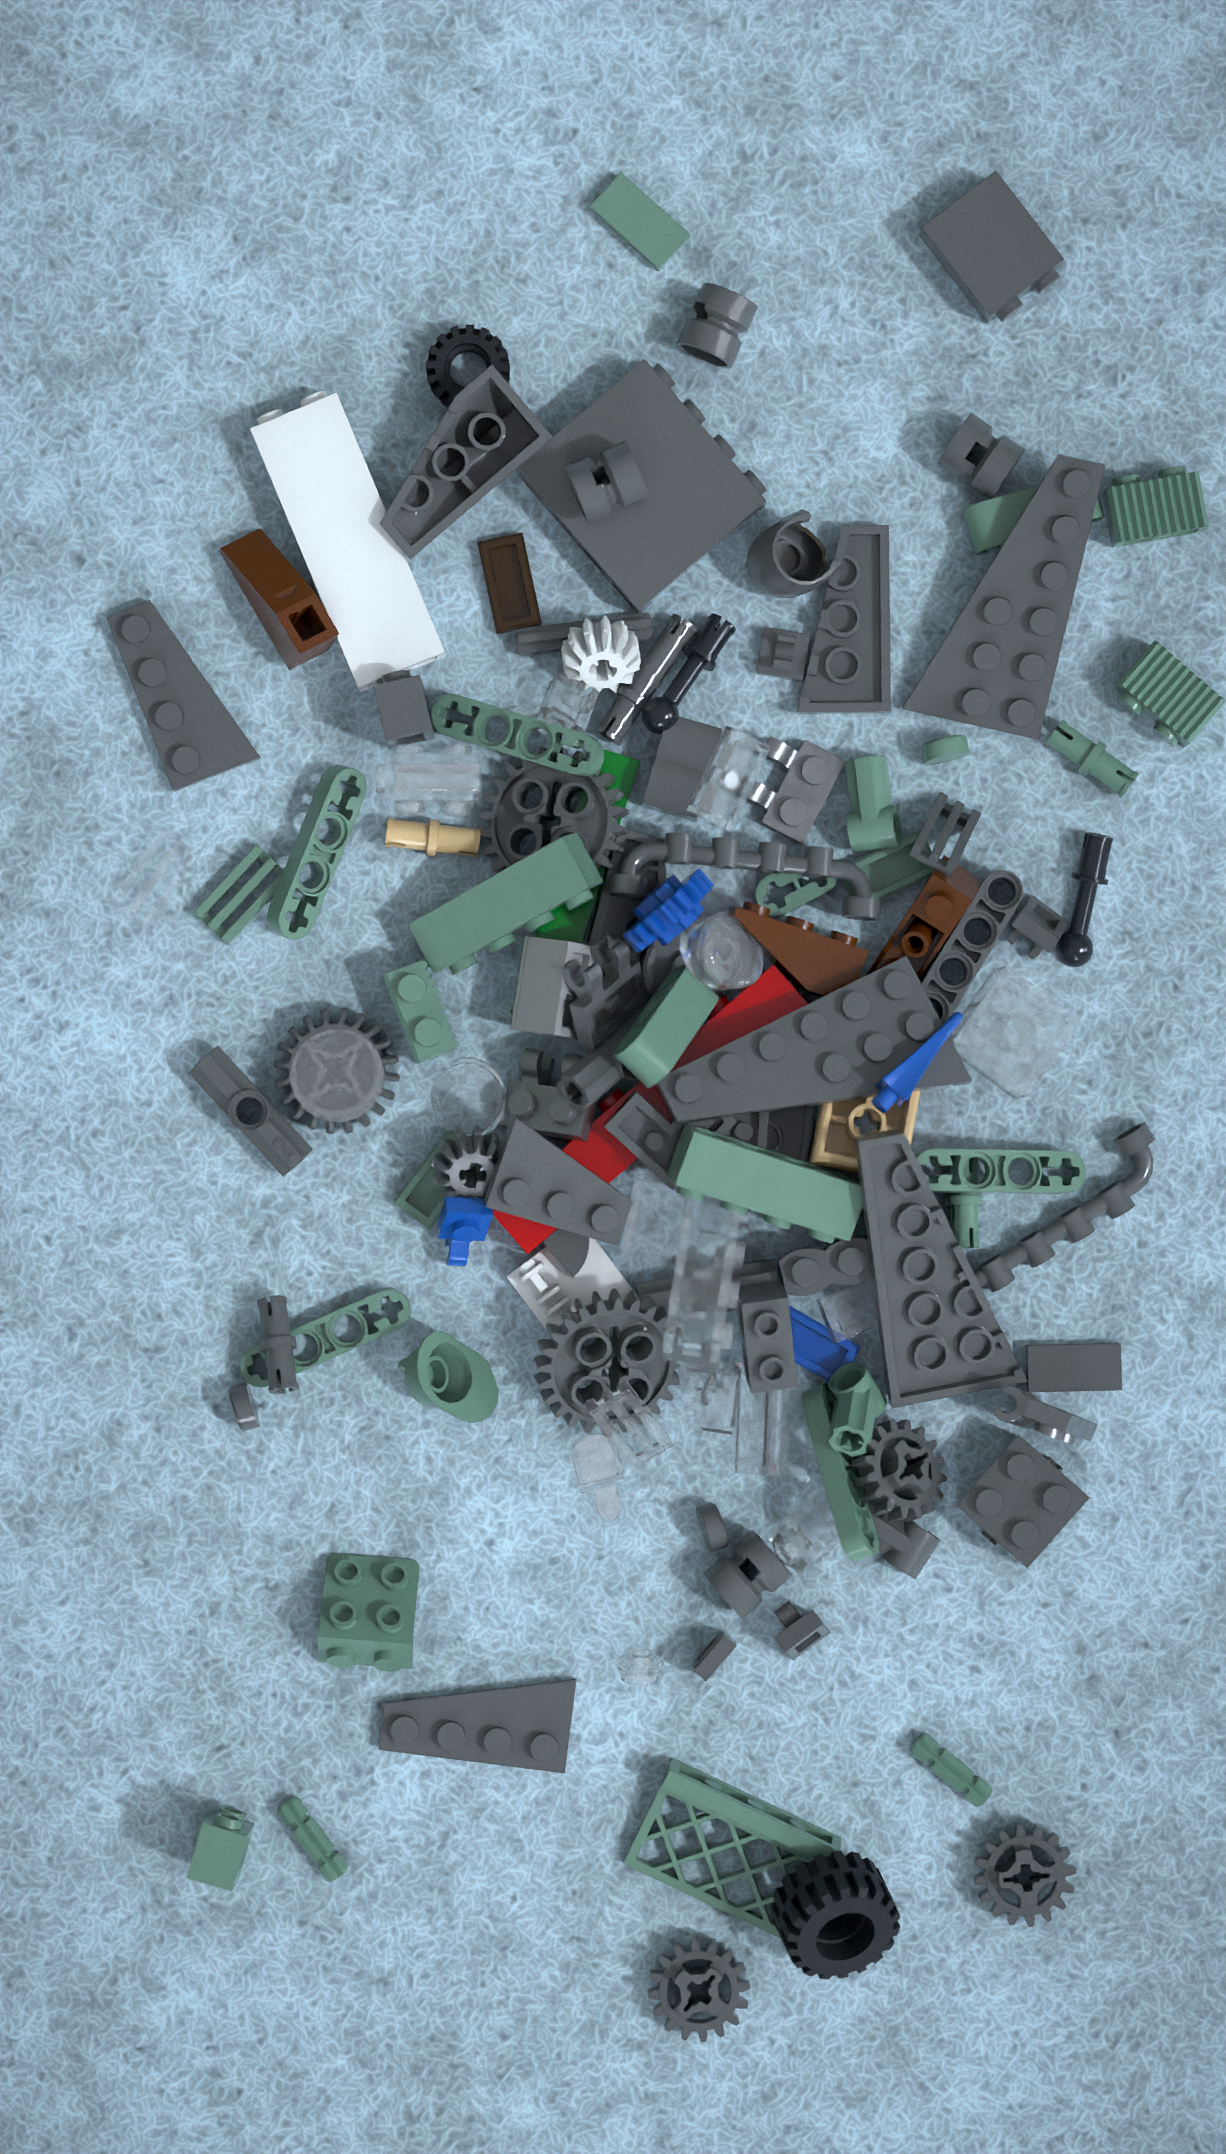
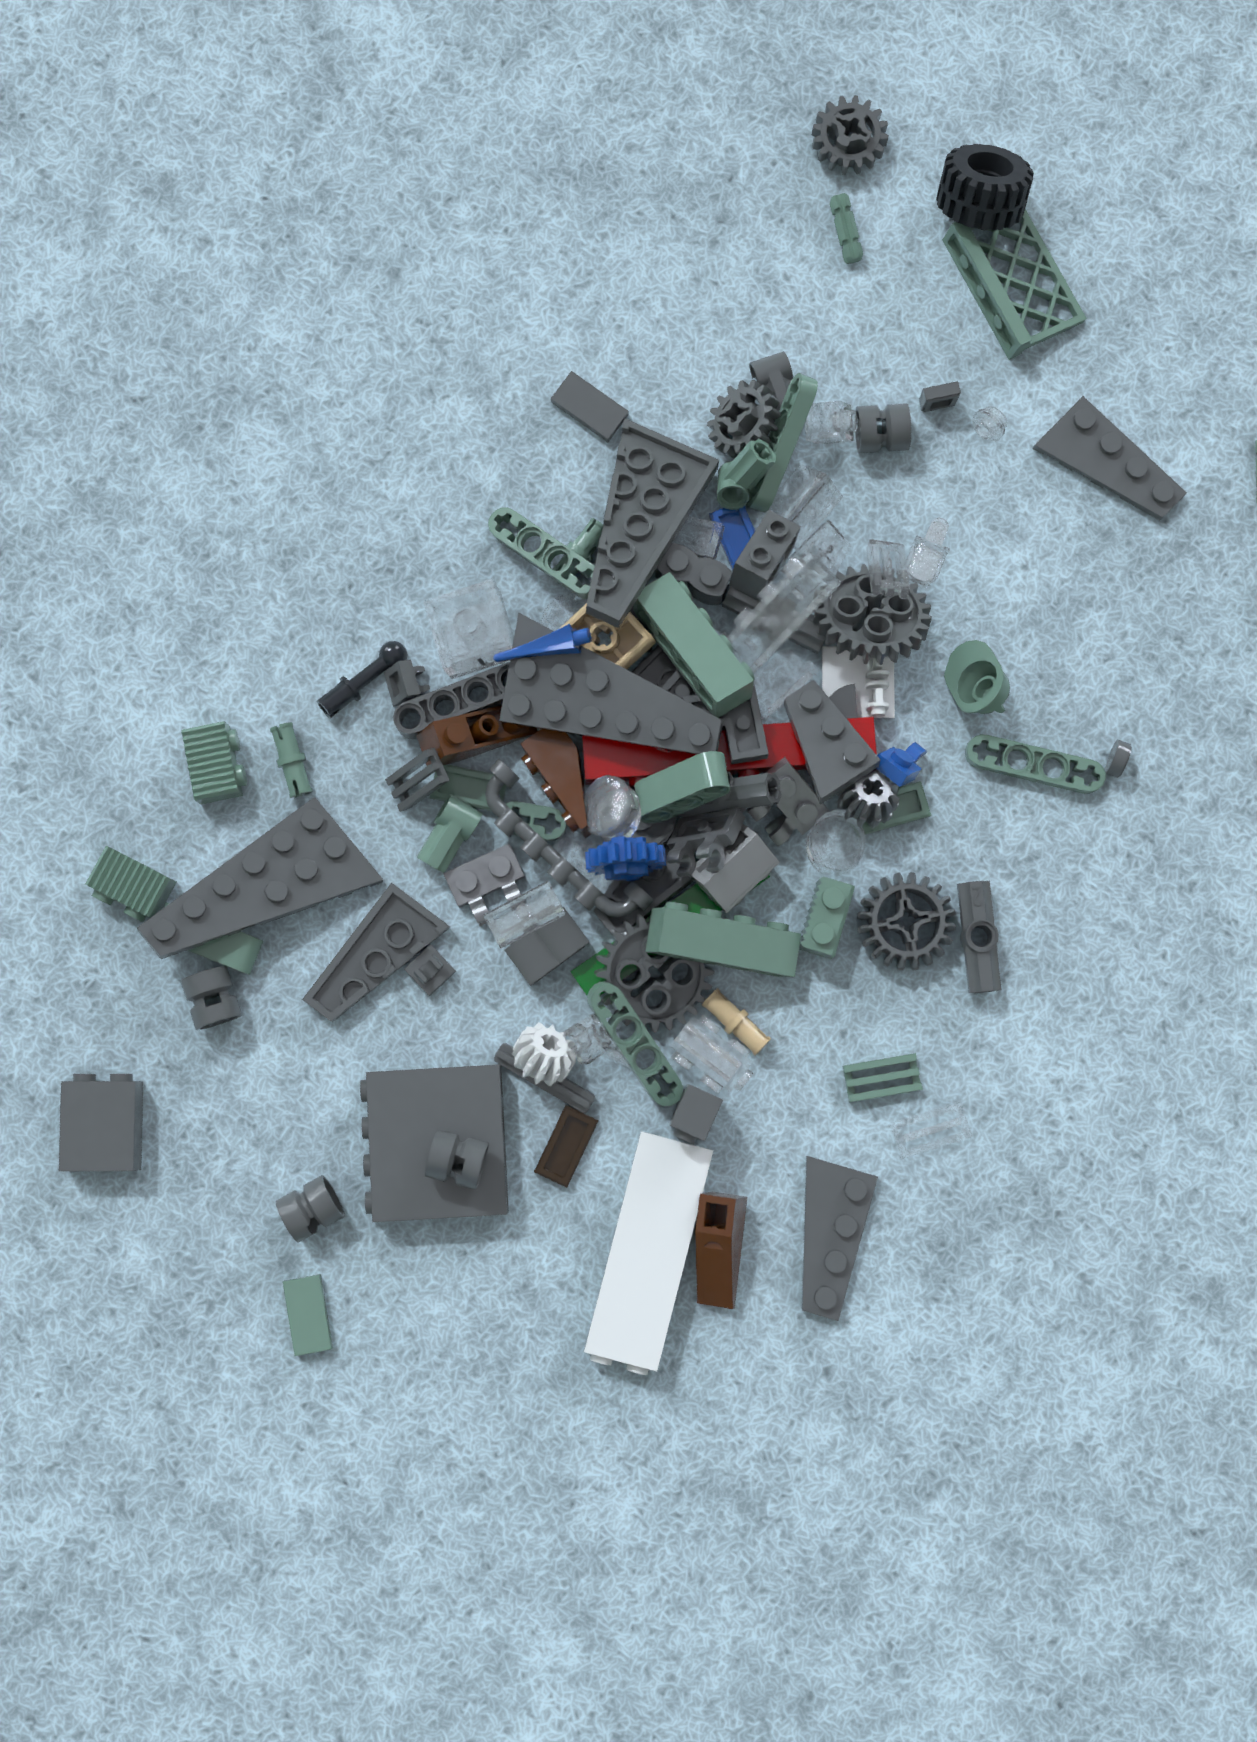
camera: 140 degrees left, 5 degrees down
(277, 1344) = (1070, 778): dark grey pin -> none
(324, 855) = (813, 1063): sand green beam -> none
(337, 1075) = (910, 914): clear tile -> none
(368, 1612) = (1131, 579): sand green bracket -> none
(454, 344) = (472, 1319): black tyre -> none
(469, 454) = (529, 1245): dark grey wedge -> none
(646, 680) = (518, 1021): dark grey pin -> none
(662, 712) = (534, 989): black pin -> none
(712, 1526) = (882, 473): dark grey tile -> none
(714, 2003) = (1088, 223): dark grey gear -> none
(789, 559) = (380, 1024): dark grey piece -> none
(800, 1631) = (876, 372): dark grey tile -> none
(945, 749) = (376, 833): sand green tile -> none
(1023, 1501) = (682, 347): dark grey brick -> none
(1046, 1418) = (627, 377): flat silver plate -> none
(1076, 1222) = (519, 491): dark grey bar -> none

